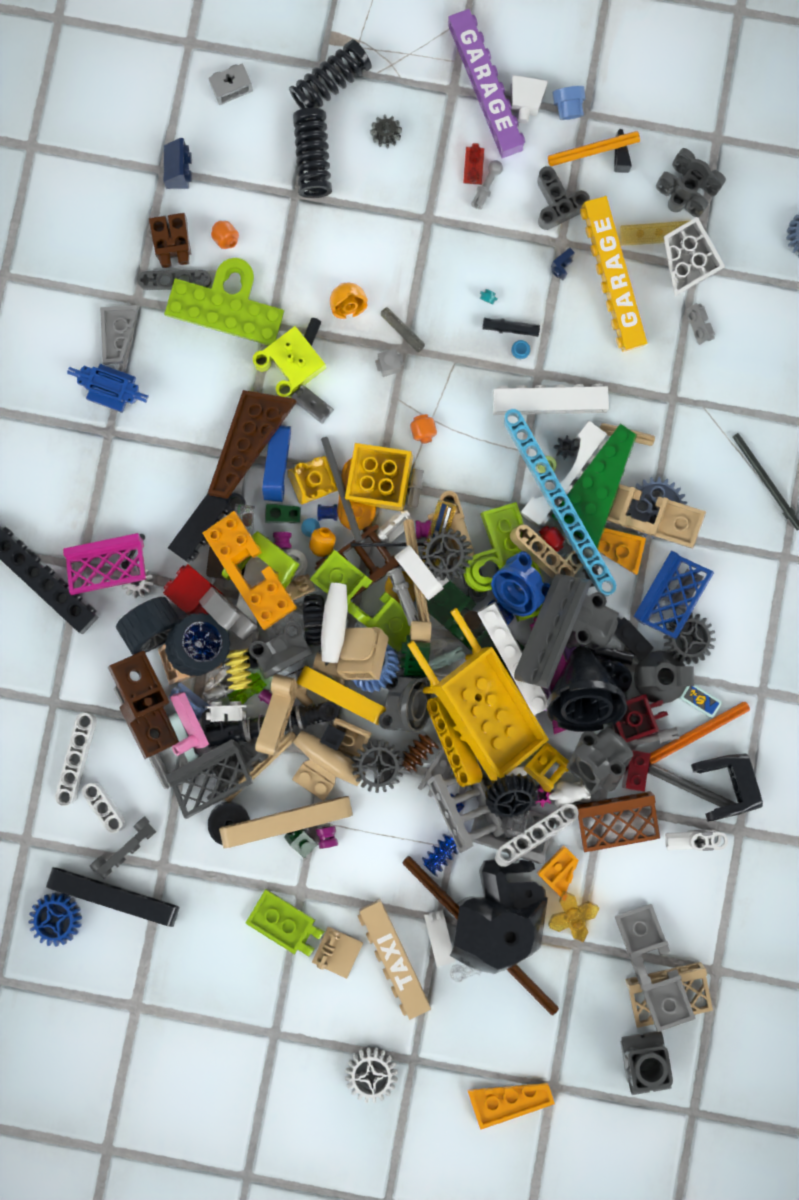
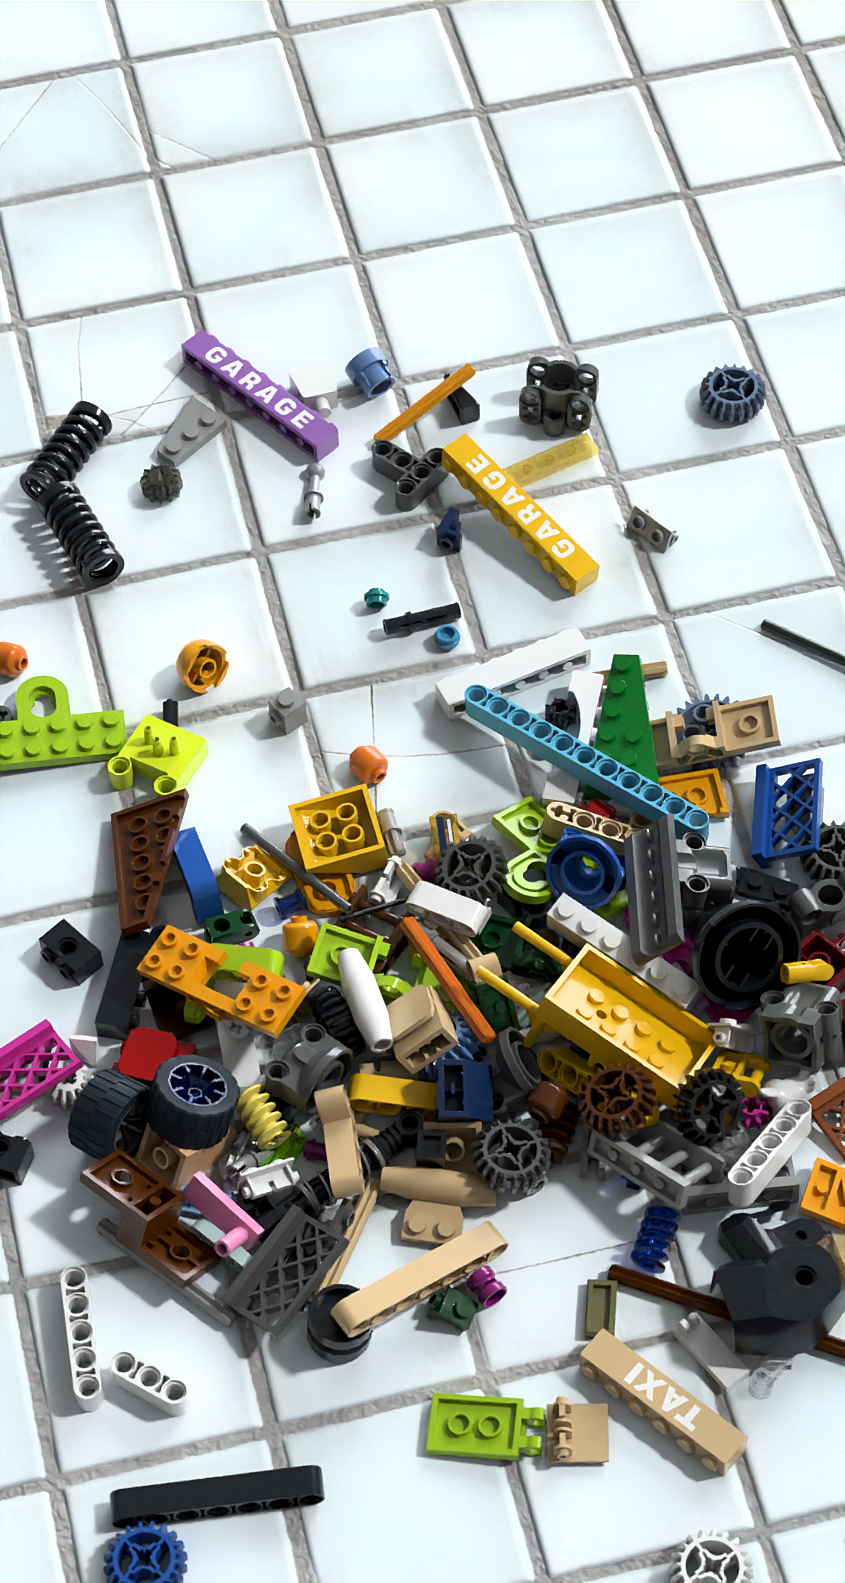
camera: 20 degrees left, 30 degrees down
(104, 867) = (220, 1391): dark grey plate -> none
(158, 561) = (85, 1048): none -> white slope
(174, 473) = (66, 939): none -> black brick
(227, 614) = (213, 1040): light grey connector -> none
(309, 526) = (273, 931): dark azure plate -> none
(312, 404) = (212, 797): flat silver hinge -> none
(367, 712) = (463, 1091): none -> dark blue slope
(388, 880) = (600, 1307): none -> olive tile
(394, 628) = (447, 980): none -> orange axle
(402, 329) = (286, 673): clear smoke axle -> none
(416, 743) = (548, 1102): none -> reddish brown head
(425, 93) = (190, 432): none -> light grey wing
(462, 763) = (614, 1090): none -> reddish brown gear
(473, 165) = (286, 476): clear red hinge -> none
(557, 742) = (735, 1036): none -> white hinge
(624, 729) = (806, 971): none -> yellow bar
(690, 256) = (603, 461): white wedge -> none

